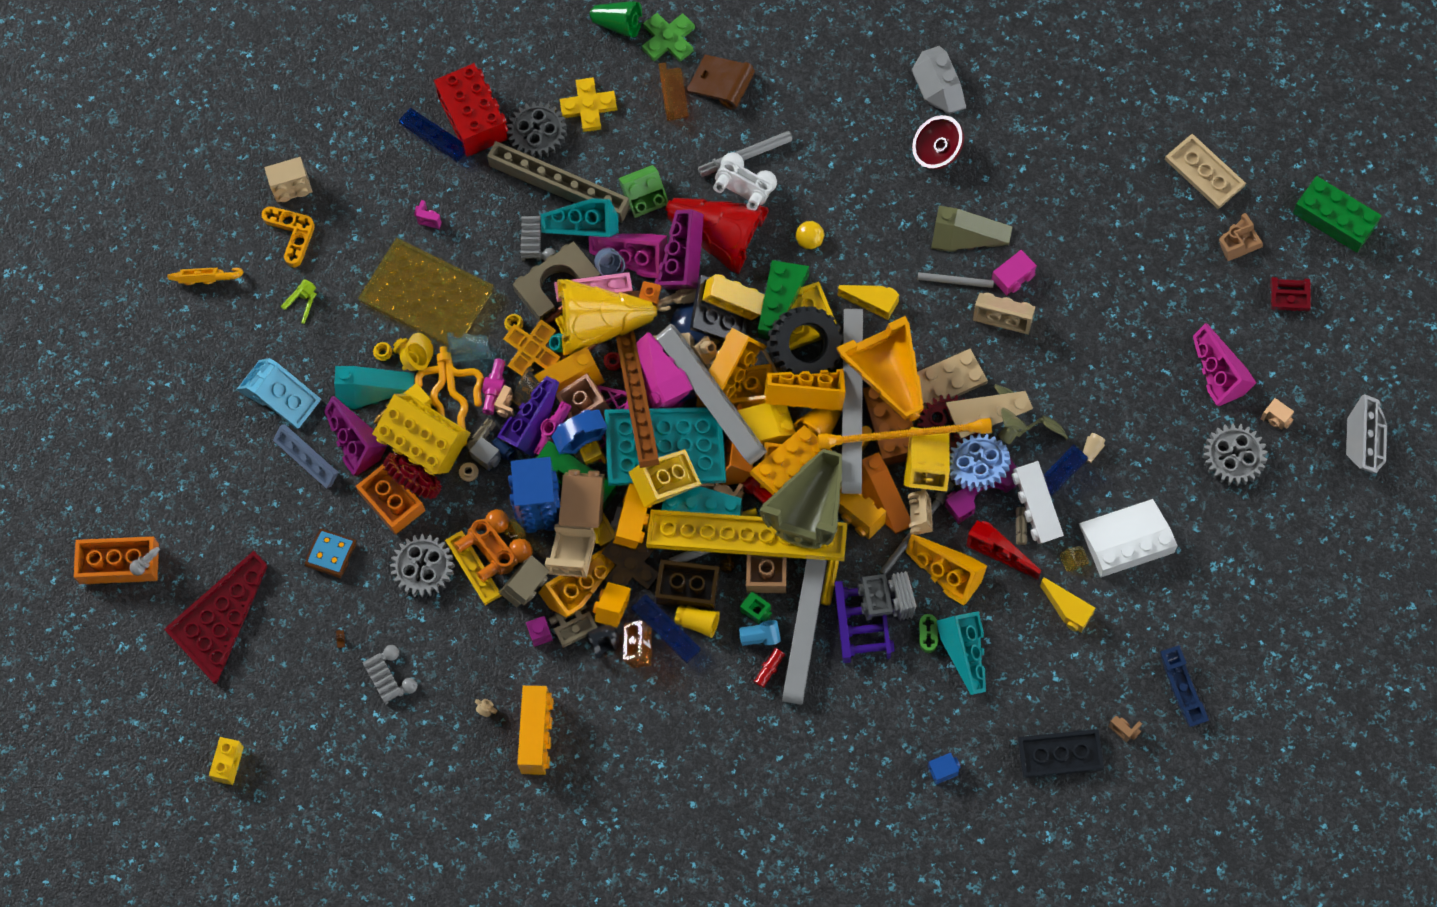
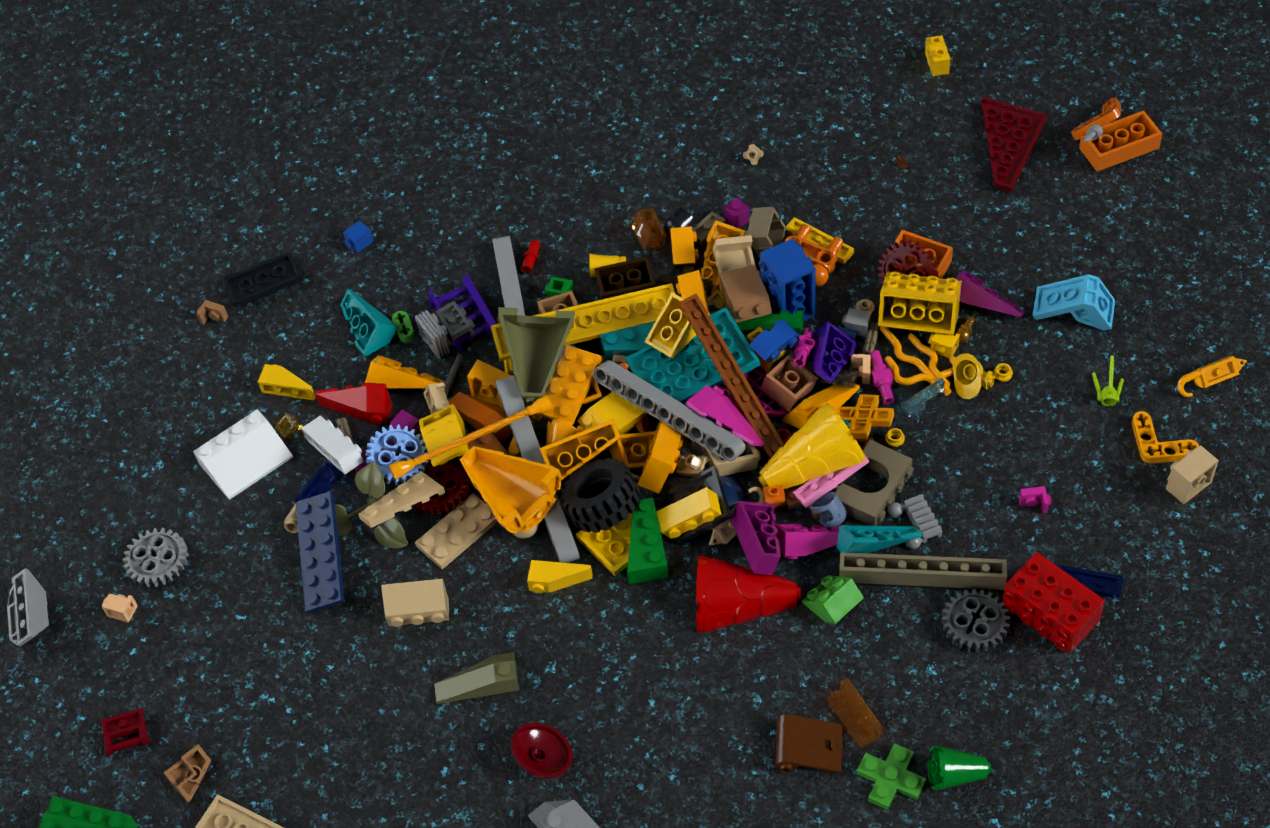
camera: 160 degrees right, 15 degrees down
(110, 591) = (1110, 111): none -> orange beam
(305, 456) = (1022, 270): sand blue plate -> none
(330, 553) = (947, 211): slope -> none
(364, 385) = (1000, 340): teal wedge -> none
(383, 678) = (847, 147): light grey gear -> none
(405, 562) = (875, 223): light grey gear -> none
(425, 292) = (993, 432): clear yellow plate -> none
(534, 727) = (703, 146): light orange brick -> none
(588, 104) = (938, 671): yellow plate -> none
(666, 629) = (614, 247): clear blue plate -> none
(744, 182) = (711, 648): white piece -> none
(748, 152) = (770, 652): light grey axle -> none
(764, 633) = (553, 270): dark azure piece -> none
(810, 235) = (643, 618): yellow hair -> none
(955, 280) = (477, 628): light grey bar -> none
(1014, 272) = (418, 650): dark pink brick -> none
(1078, 394) = (319, 552): none -> dark blue plate
(1183, 687) = (165, 356): dark blue slope -> none
(1223, 370) = (178, 626): dark pink wedge -> none

